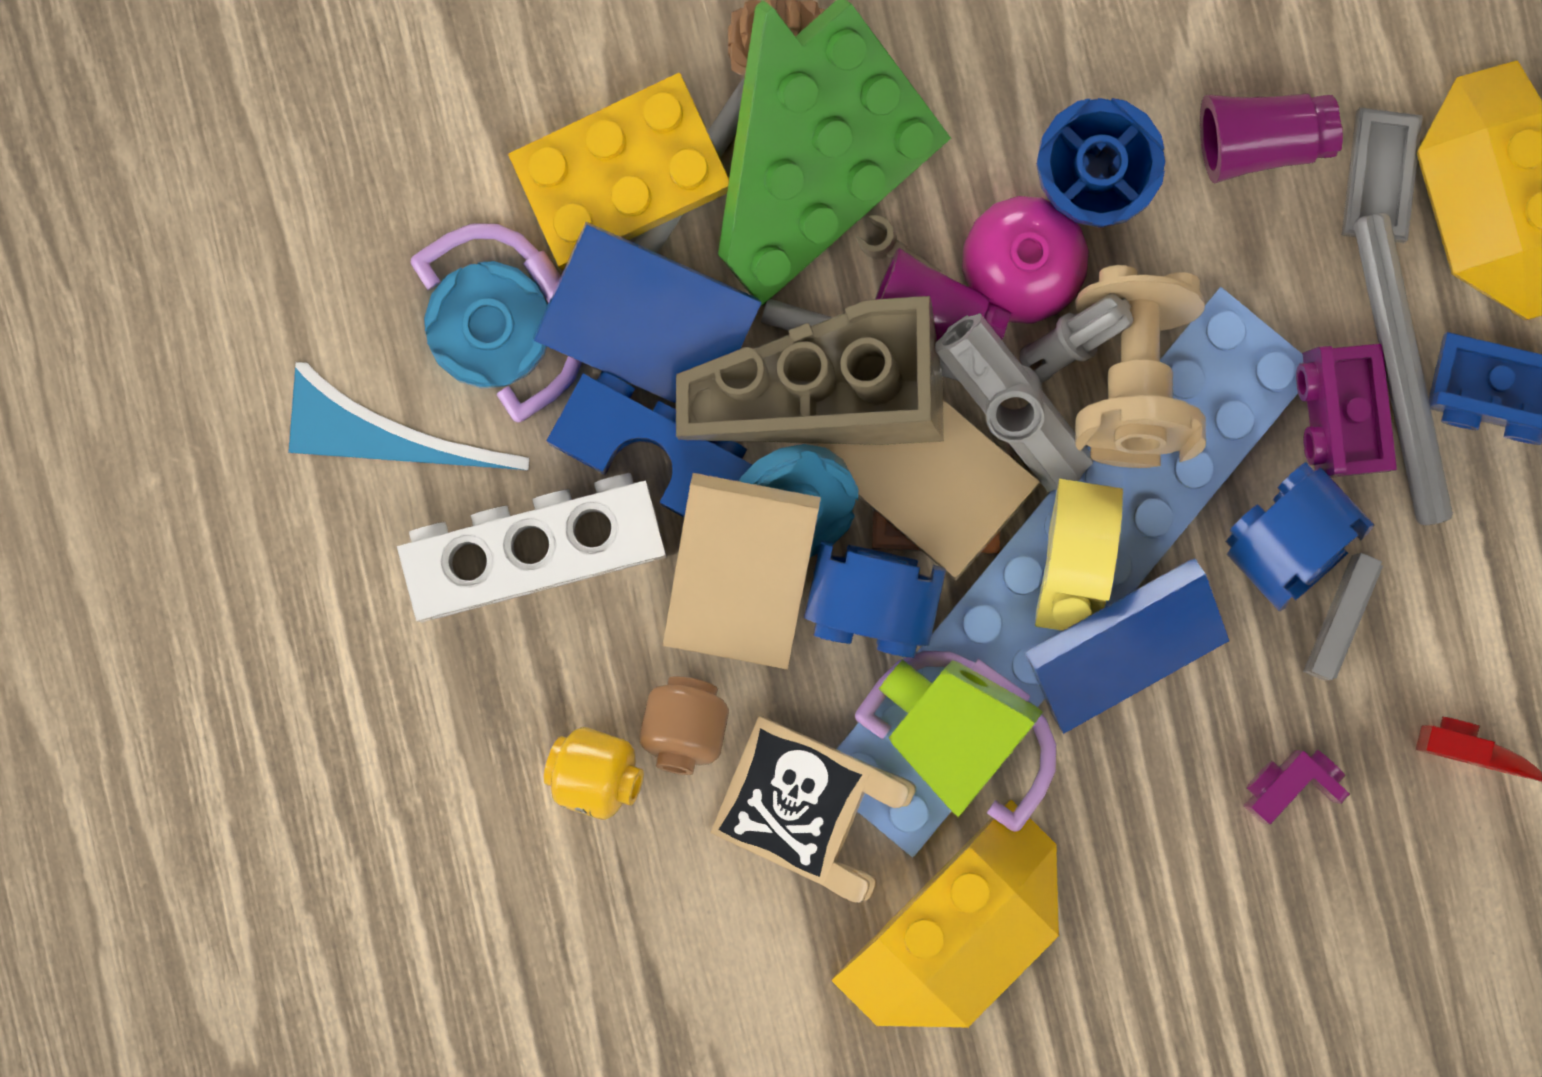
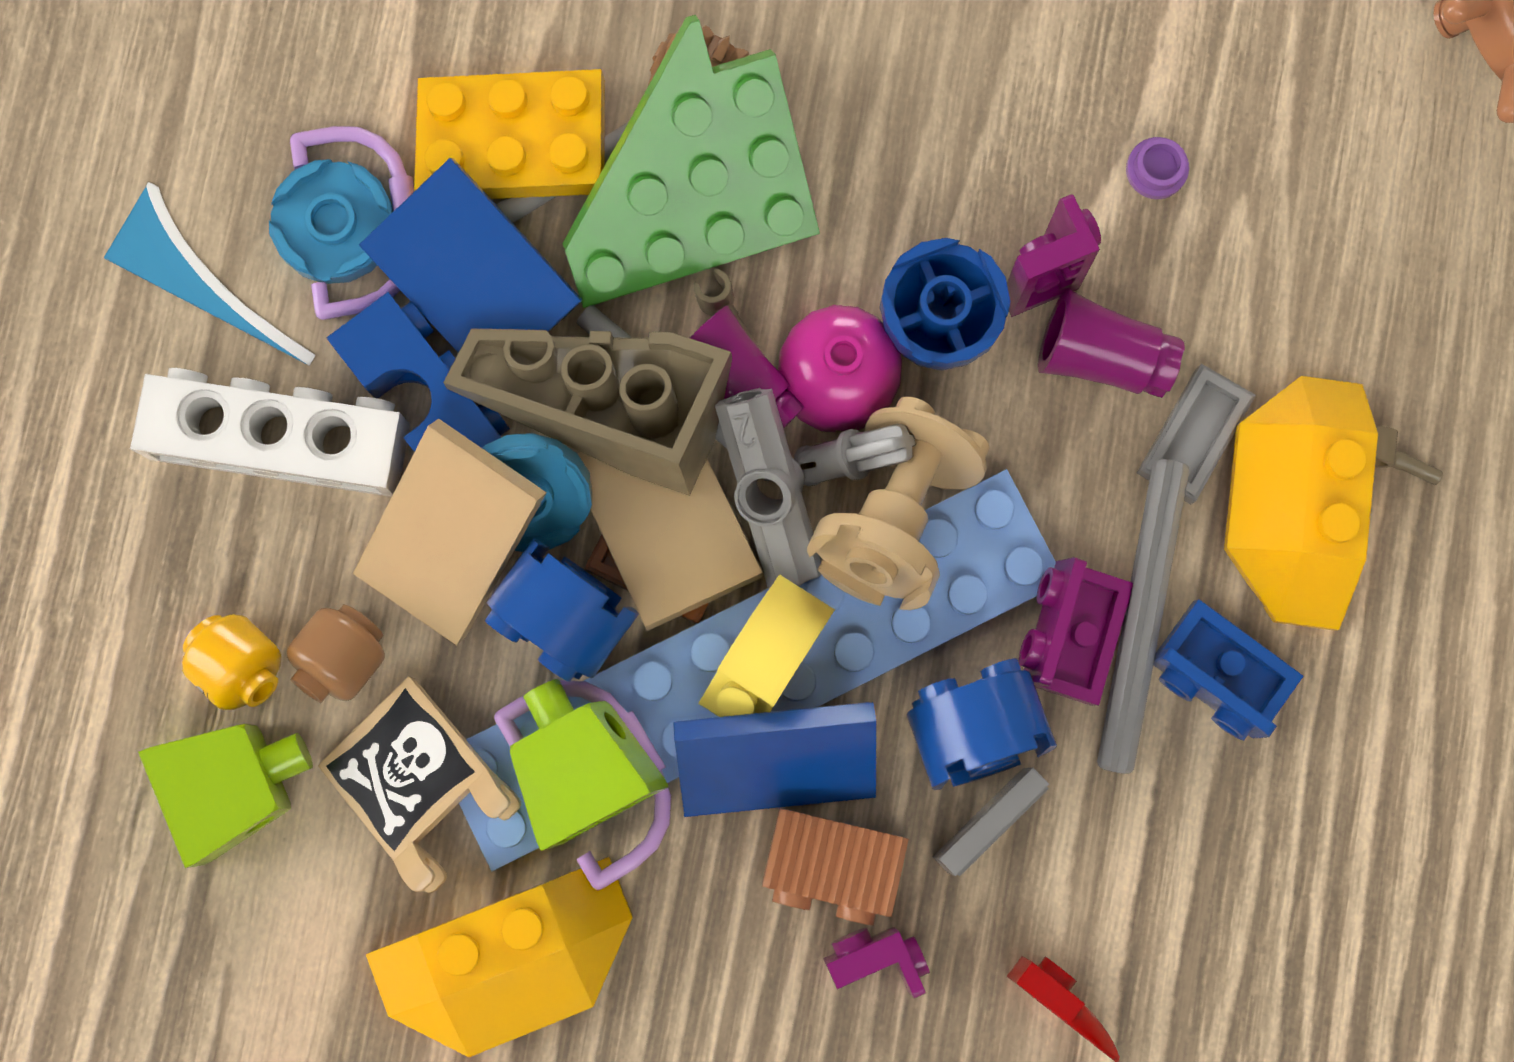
camera: 20 degrees right, 5 degrees down
(638, 886) = (222, 787): none -> lime torso
(1187, 76) = (1055, 259): none -> magenta bracket
(1218, 716) = (834, 865): none -> nougat brick

